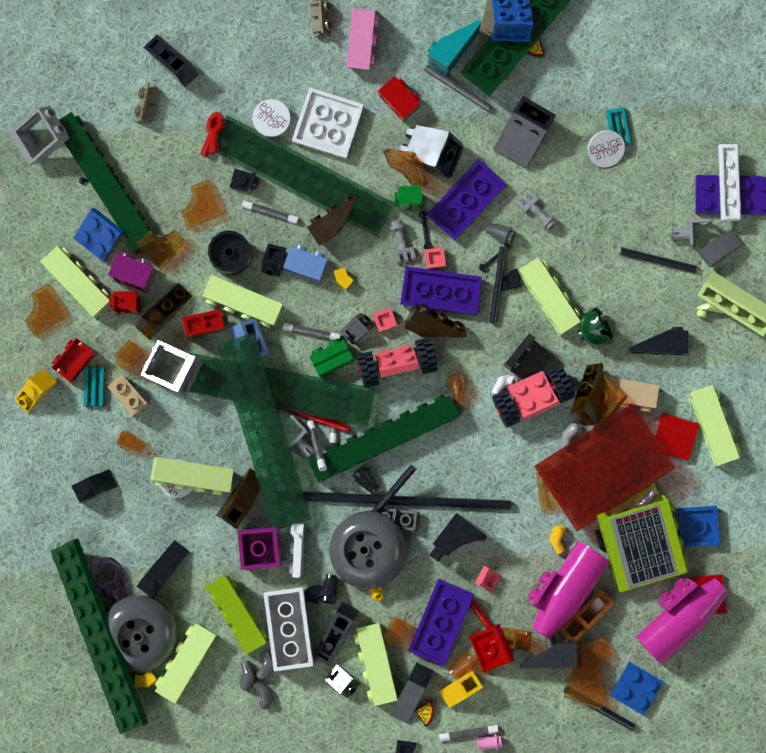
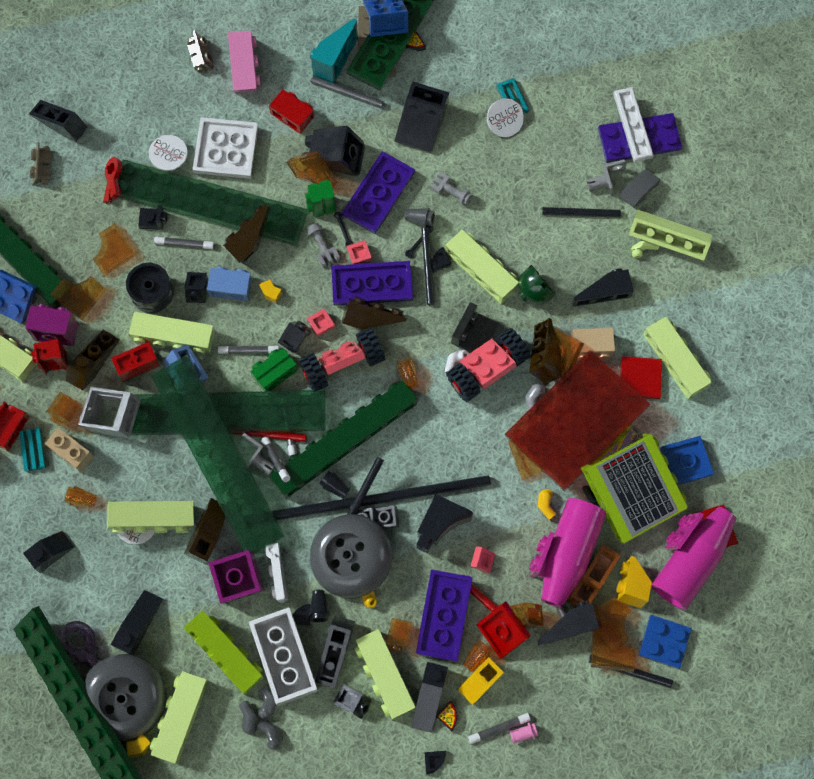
camera: 15 degrees left, 10 degrees down
(620, 632) = (634, 585): none -> yellow slope

